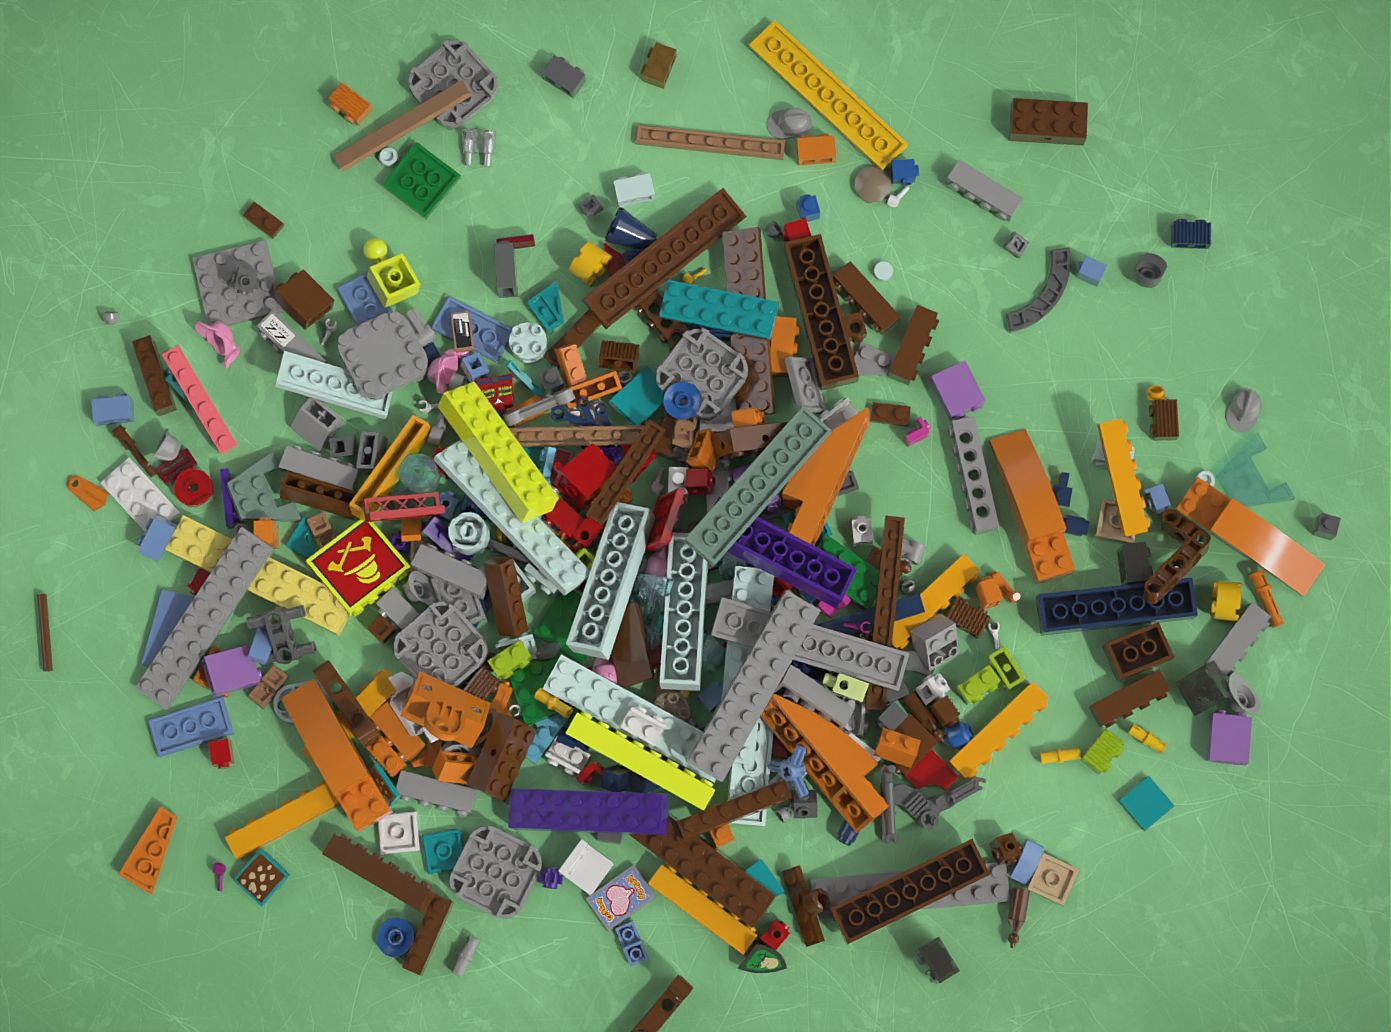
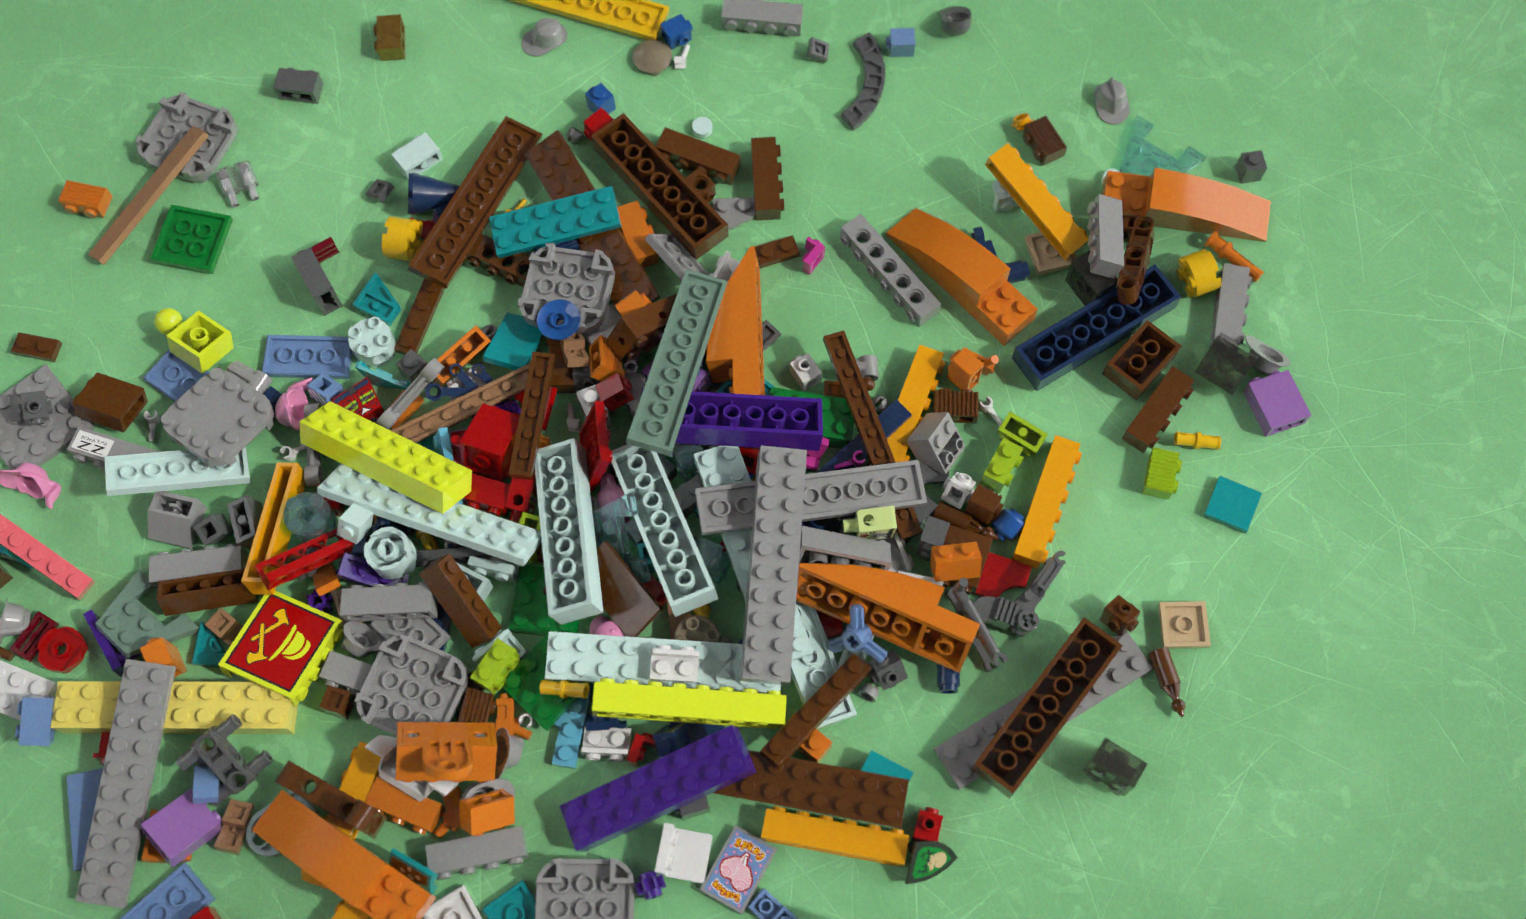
camera: 25 degrees left, 10 degrees down
(387, 757) = (403, 839): orange brick -> none
(388, 157) = (147, 232): light aqua tile -> none
(452, 498) = (355, 523): none -> light aqua brick
(462, 331) = (296, 360): slope -> none
(501, 757) = (533, 776): reddish brown brick -> none
(548, 651) = (534, 639): dark grey tile -> none
(570, 364) = (425, 340): orange brick -> none
(619, 355) = (472, 313): reddish brown brick -> none
(710, 142) = (473, 85): medium nougat tile -> none
(711, 696) = (732, 605): medium blue brick -> none
(806, 904) = (944, 776): reddish brown plate -> none
(816, 149) = (582, 48): orange brick -> none
(957, 390) = (831, 200): medium lavender brick -> none
(1027, 862) = (1150, 624): medium blue slope -> none
(1060, 755) = (1121, 497): yellow pin -> none
(1156, 499) = (1078, 209): medium blue brick -> none
(1160, 536) = (1106, 236): none -> light grey brick

